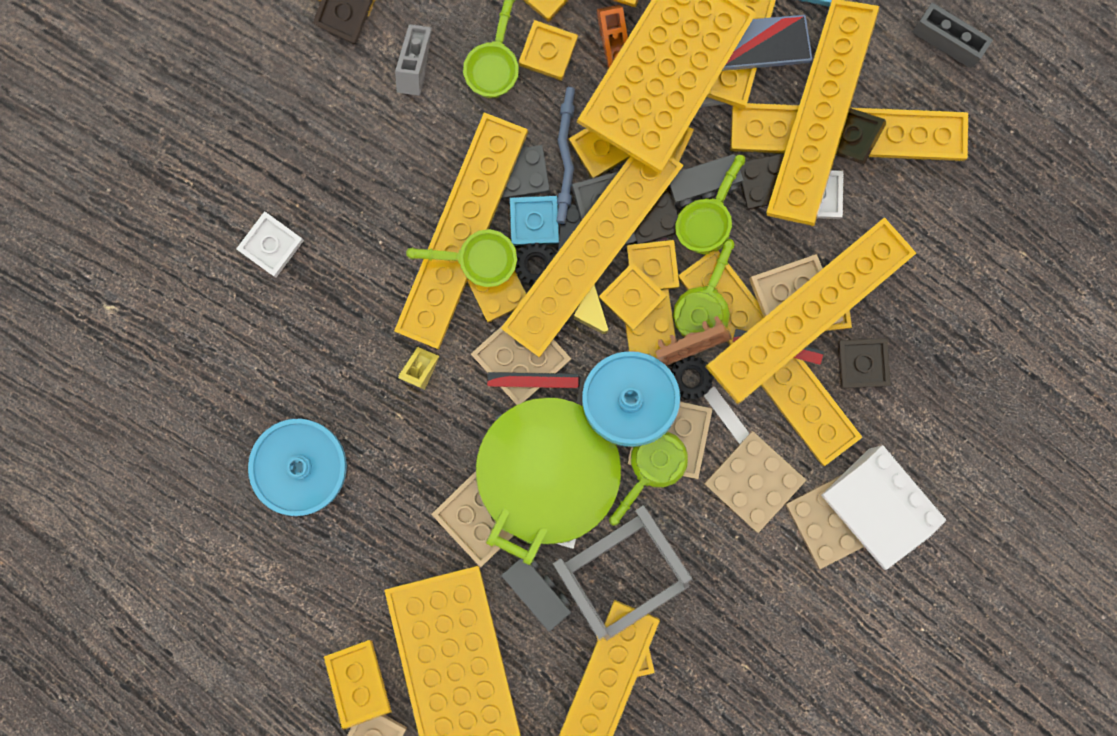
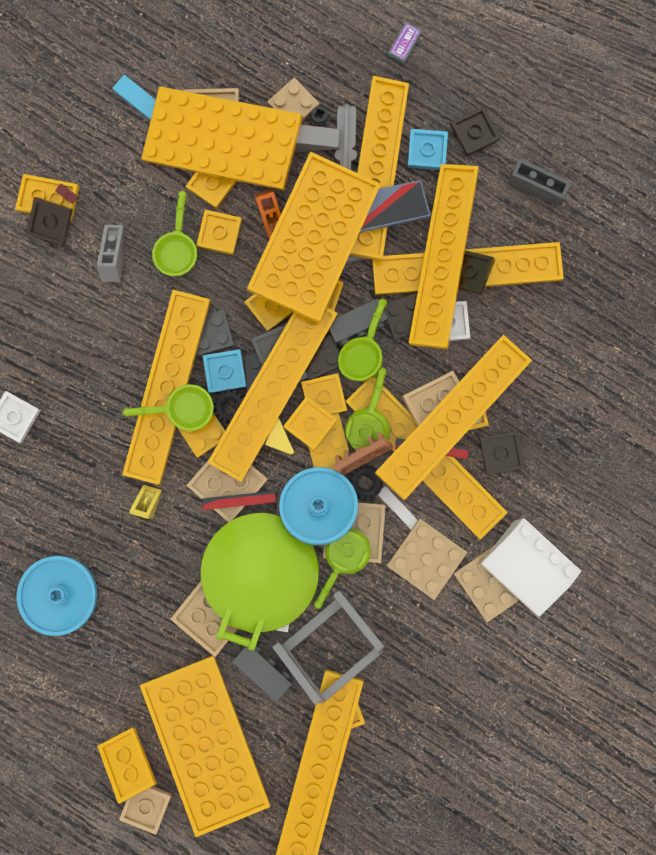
camera: 15 degrees left, 0 degrees up
(564, 198) = (246, 350): sand blue bar -> none

